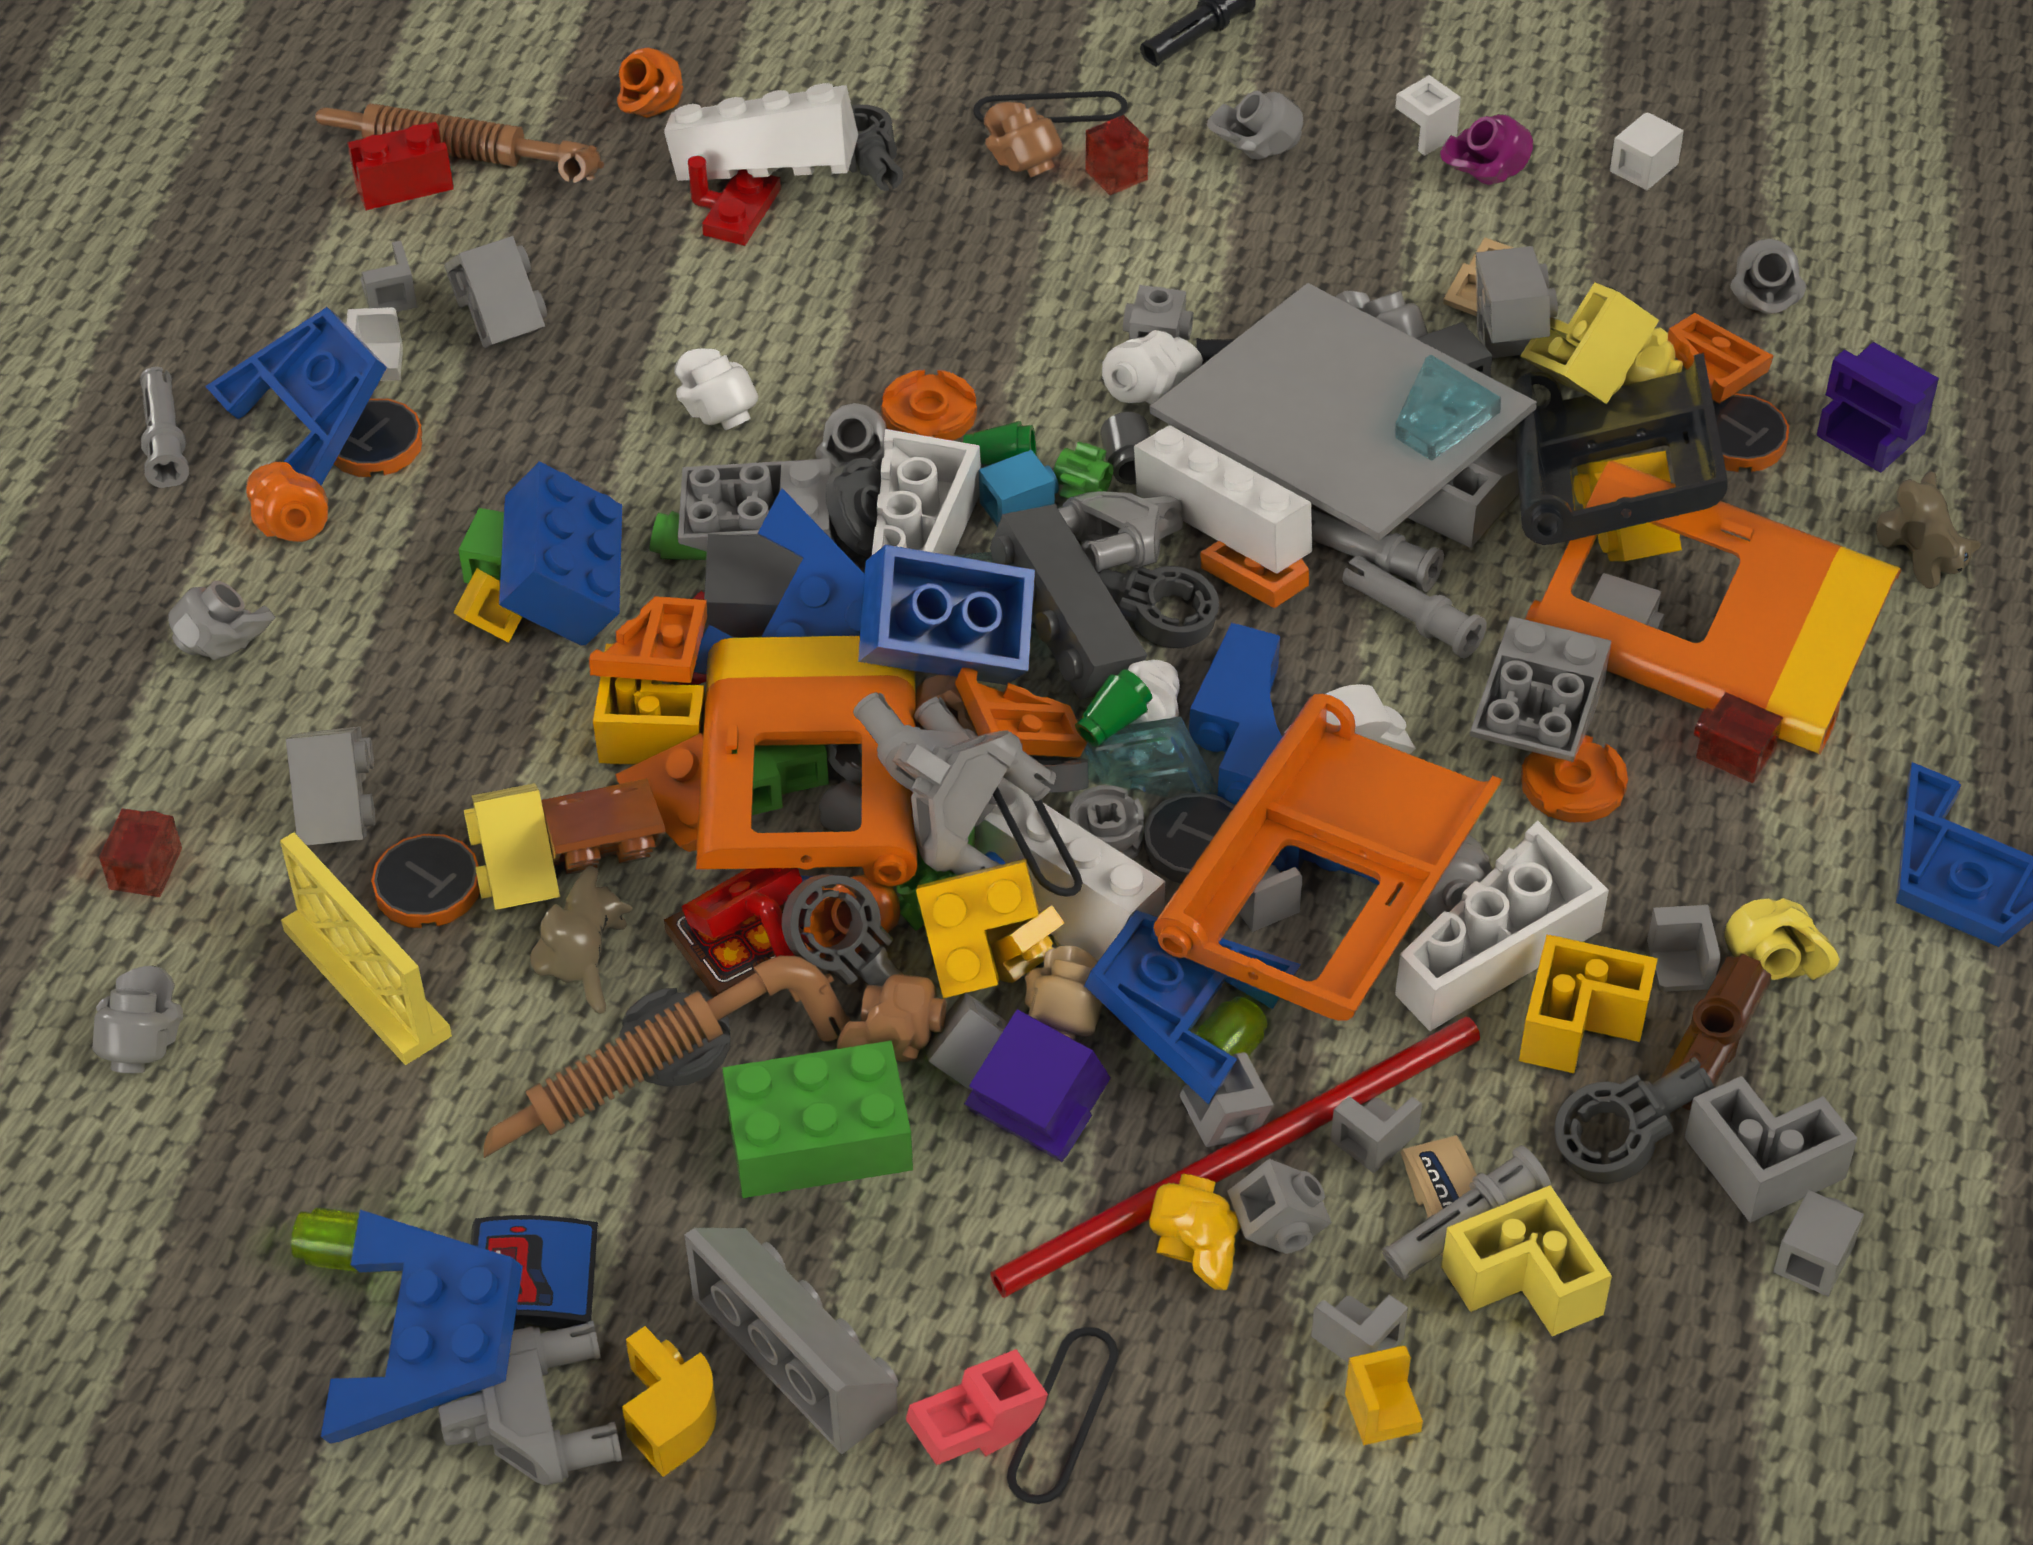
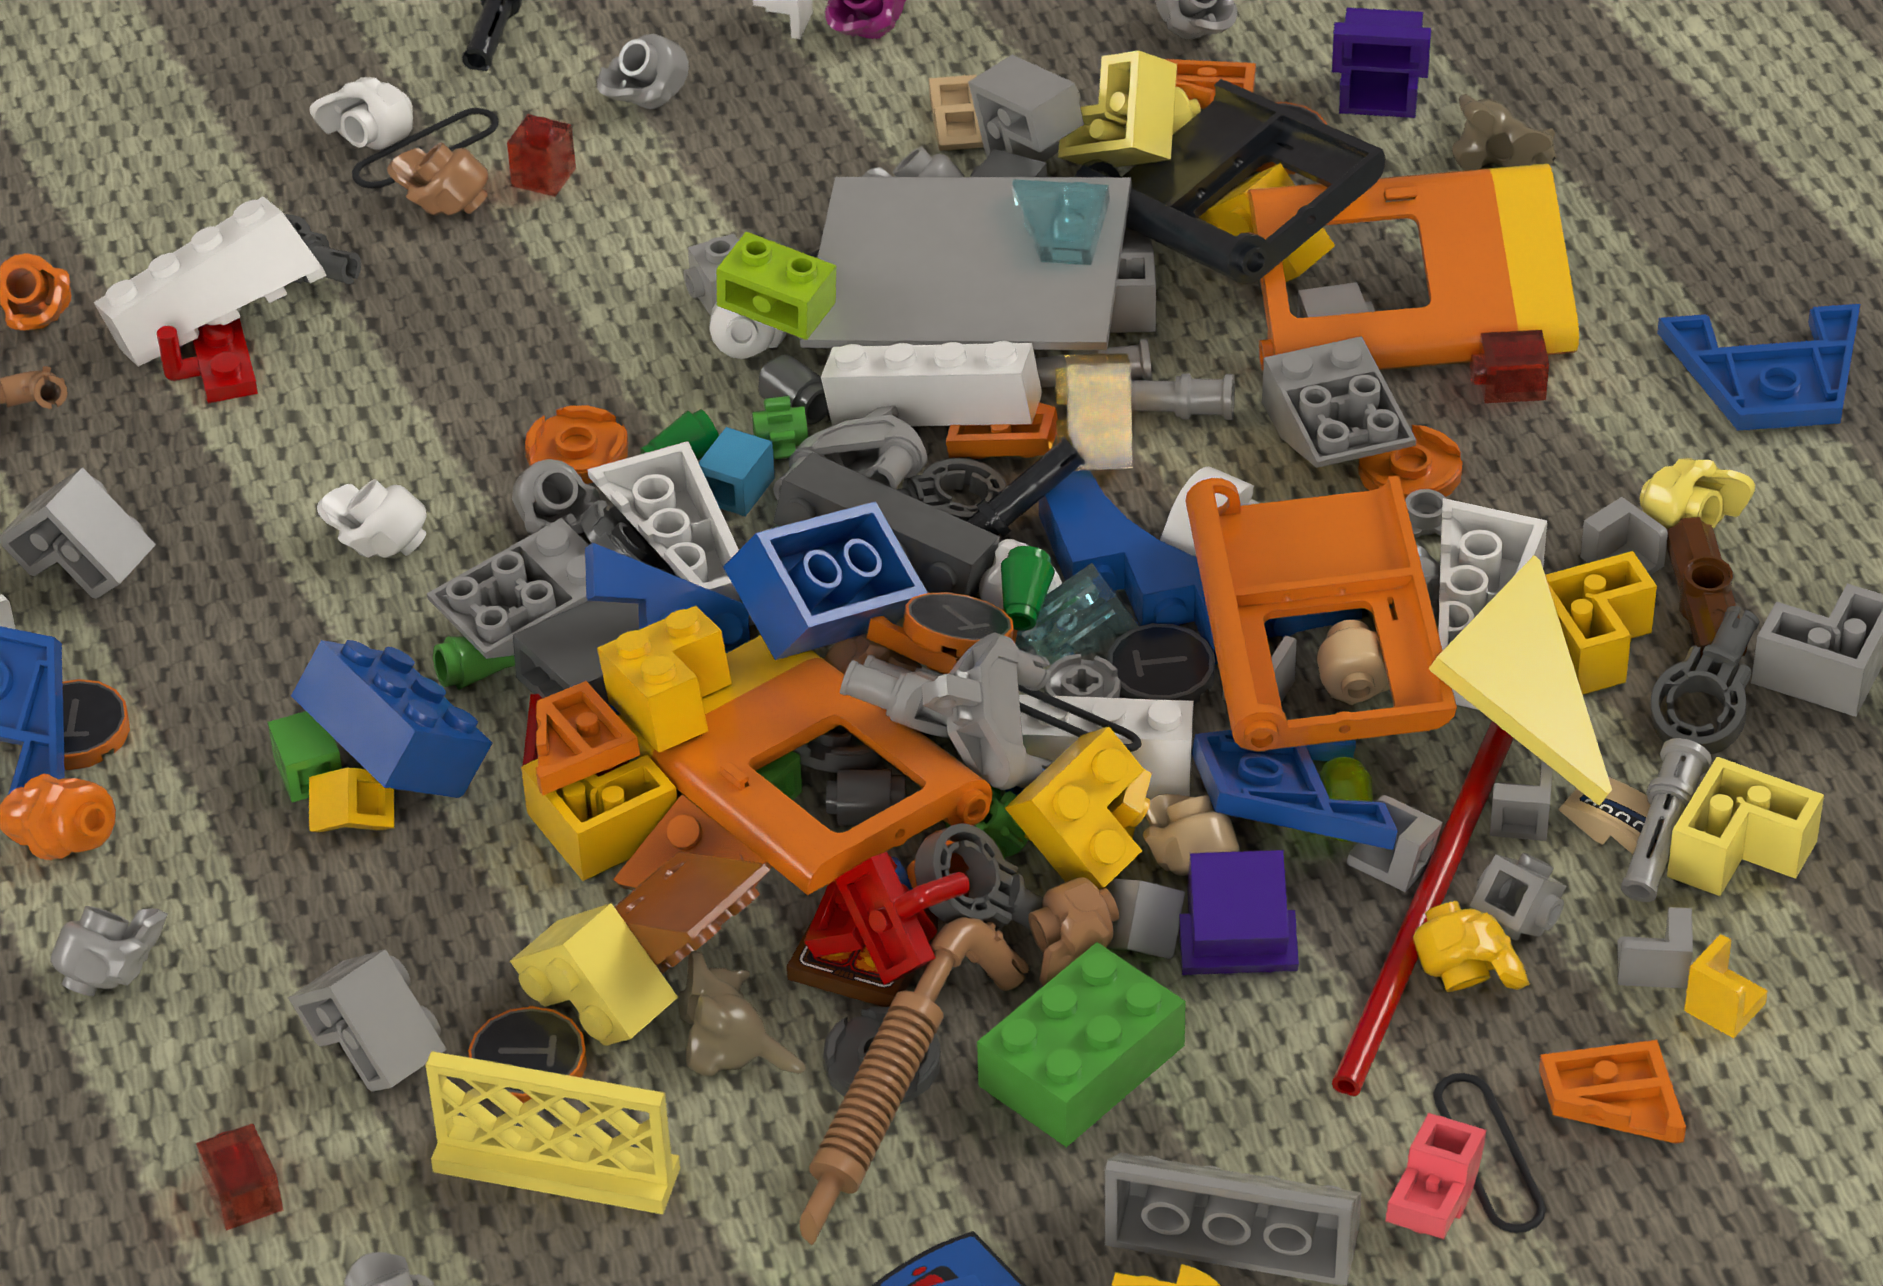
camera: 35 degrees left, 5 degrees down
(739, 917) = (888, 914): none -> red plate
(756, 623) = (663, 673): none -> yellow brick
(1017, 57) = (366, 113): none -> white head
(1026, 707) = (952, 621): none -> tile
(1158, 349) = (776, 285): none -> lime brick
(1174, 635) = (1027, 489): none -> black pin
(1209, 1426) = (1615, 1089): none -> orange wing
(1321, 589) = (1096, 409): none -> clear yellow brick
(1330, 917) = (1352, 663): none -> tan head
(1445, 1015) = (1522, 678): none -> light yellow tile
(1548, 815) = (1425, 511): none -> light grey plate

